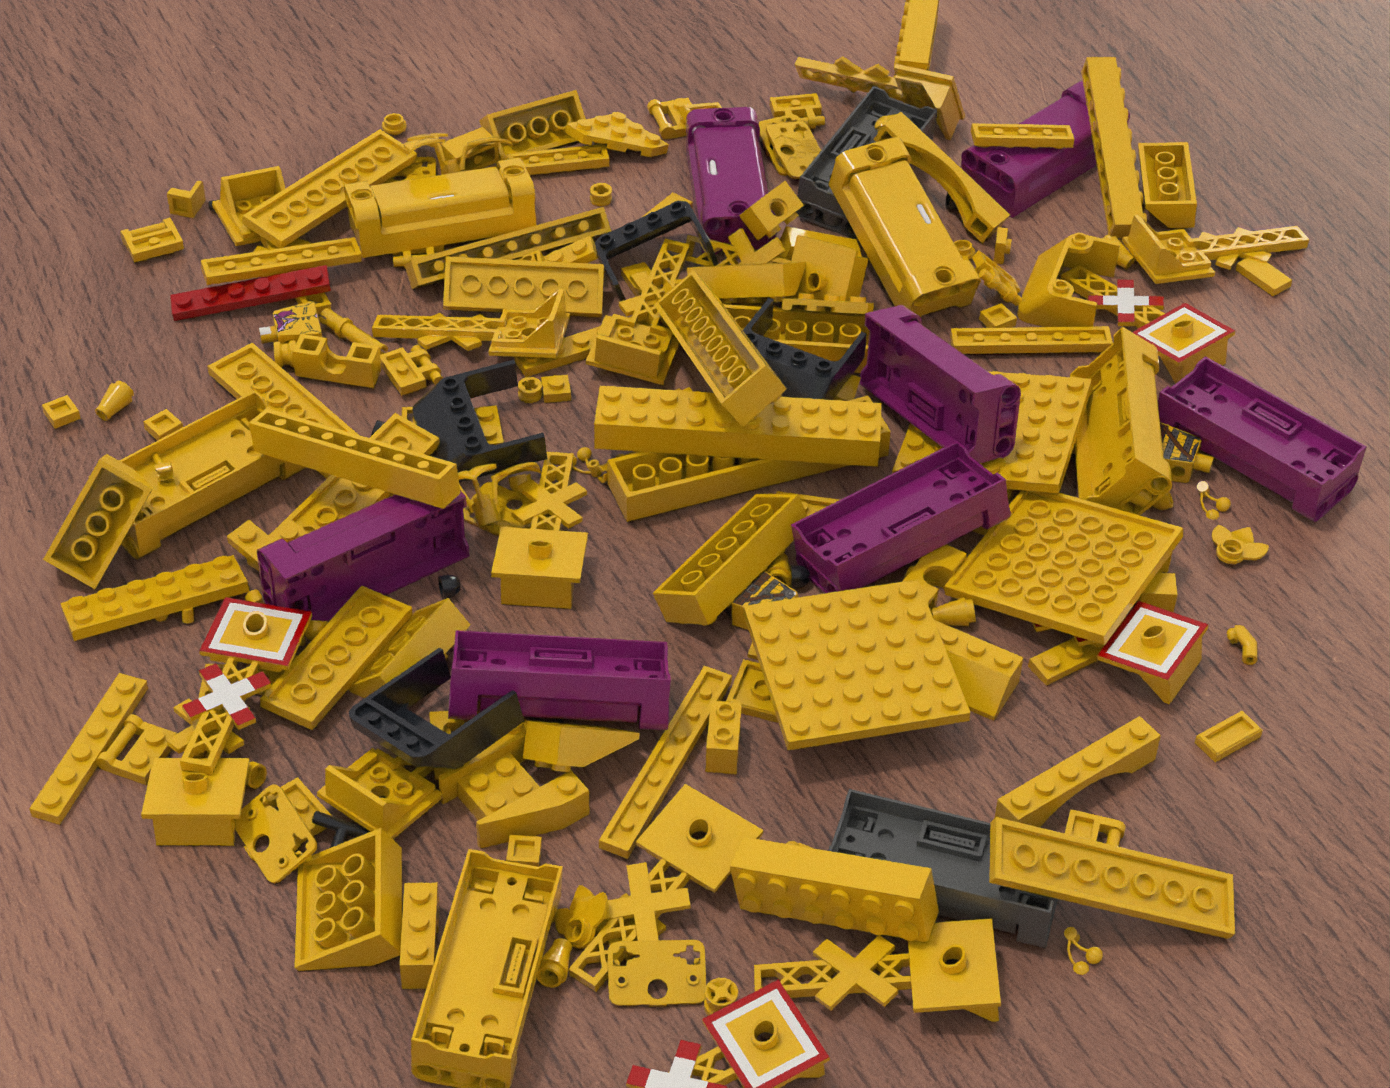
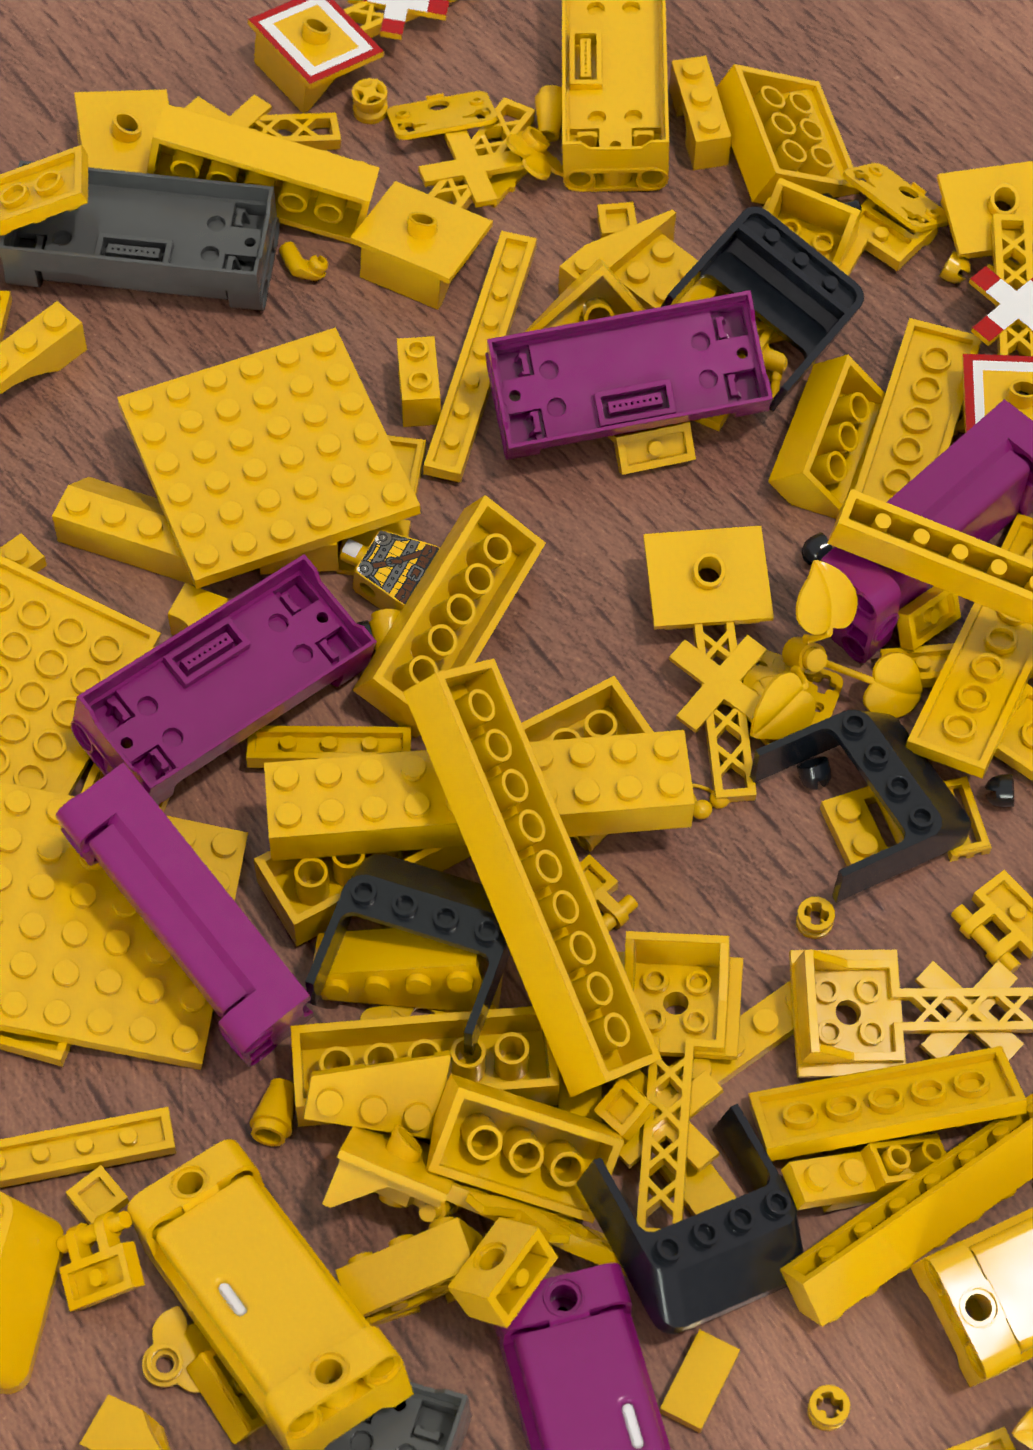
camera: 170 degrees right, 15 degrees up
(434, 709) = (777, 363): none -> yellow hand
(556, 388) = (777, 930): yellow plate -> none
(955, 613) = (145, 607): yellow cone -> none
(1002, 245) = (93, 1381): yellow plate -> none

